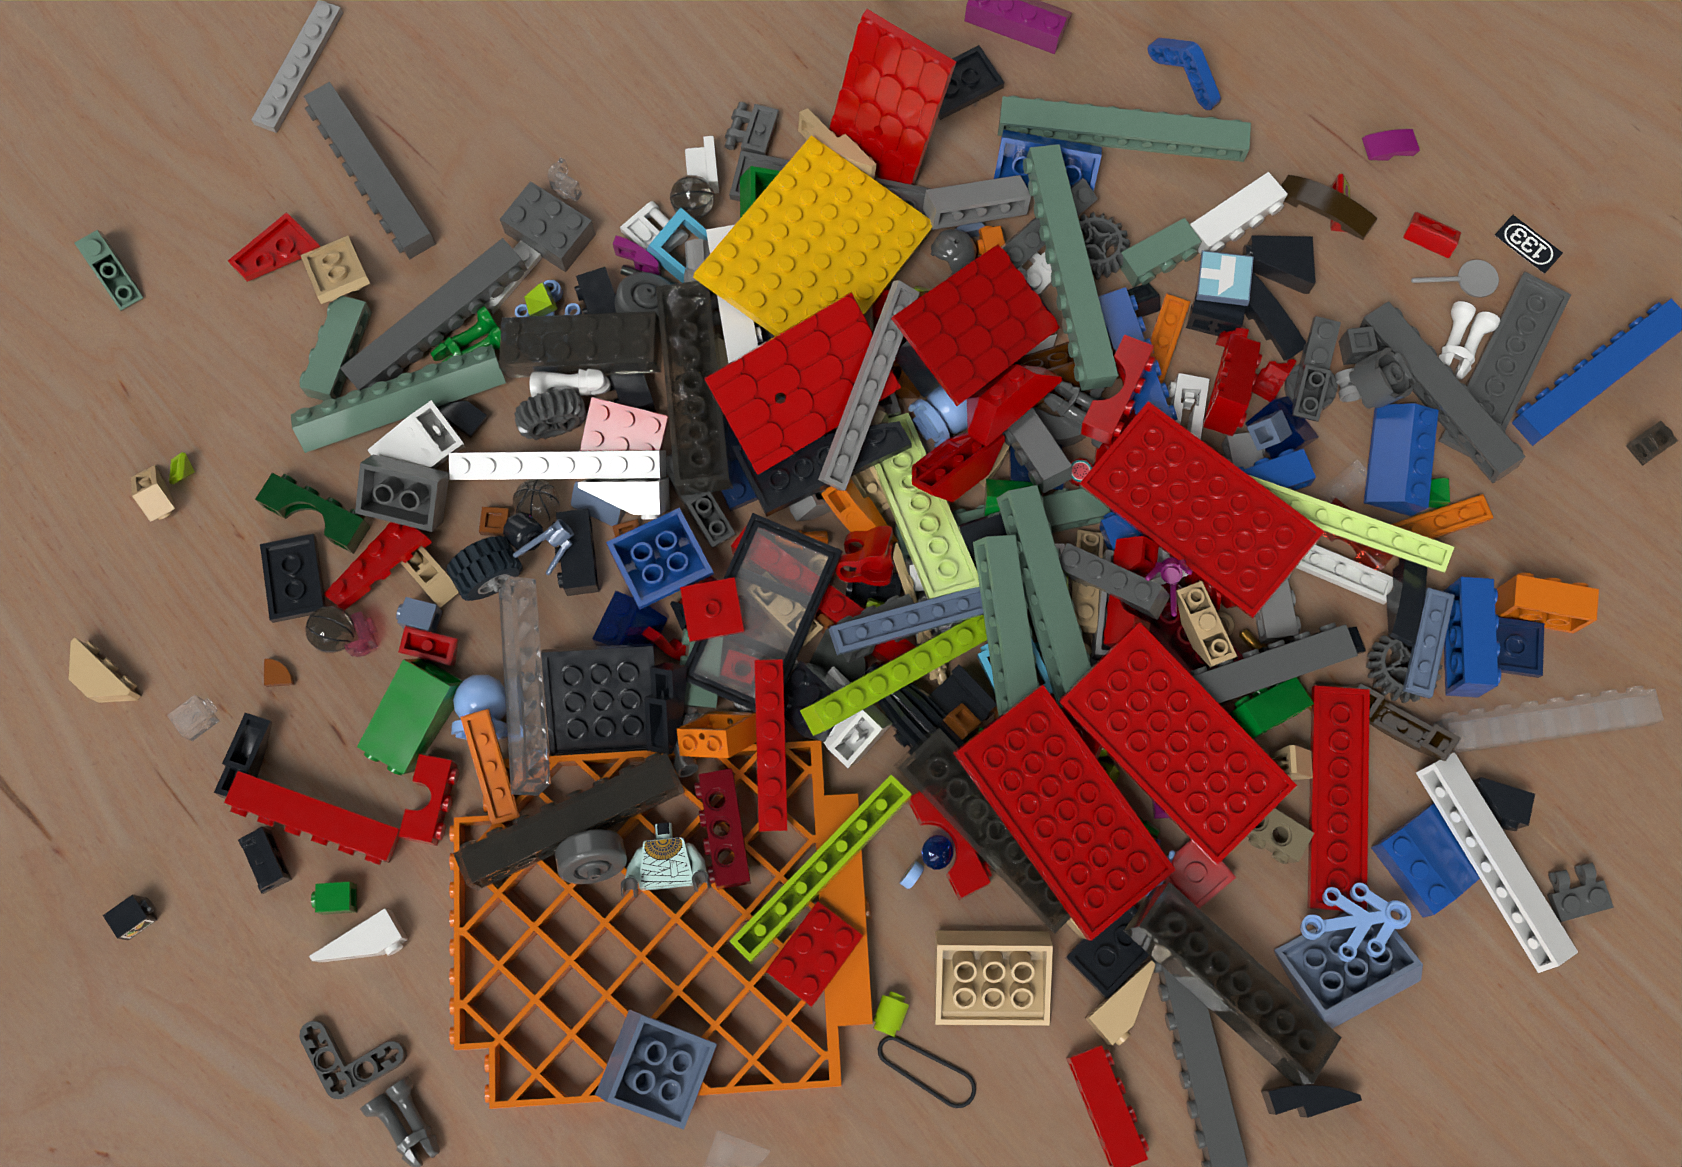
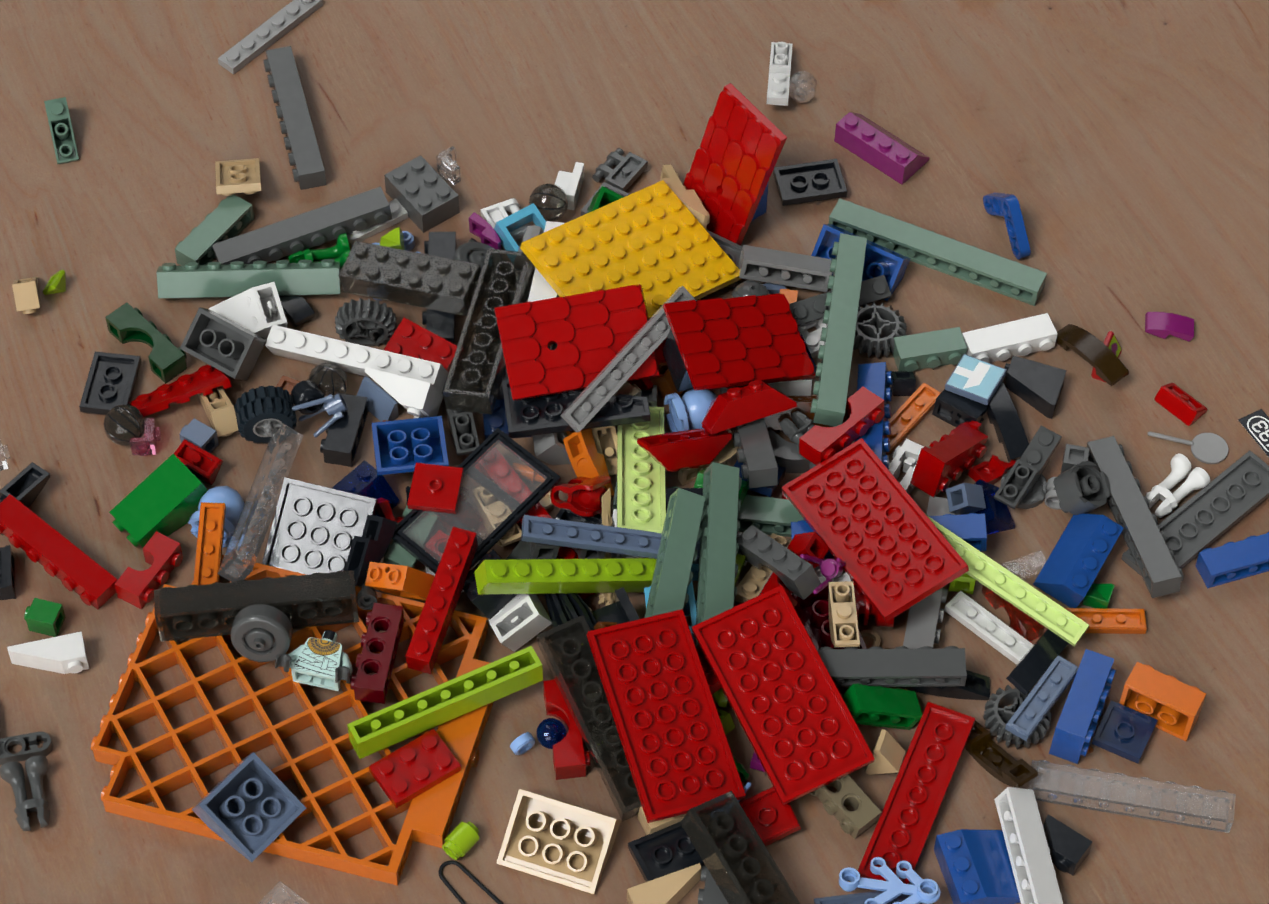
camera: 20 degrees right, 20 degrees down
(273, 248) = (195, 151): red wing -> none
(276, 674) = (67, 448): dark orange tile -> none
(584, 382) = (401, 305): white piece -> none

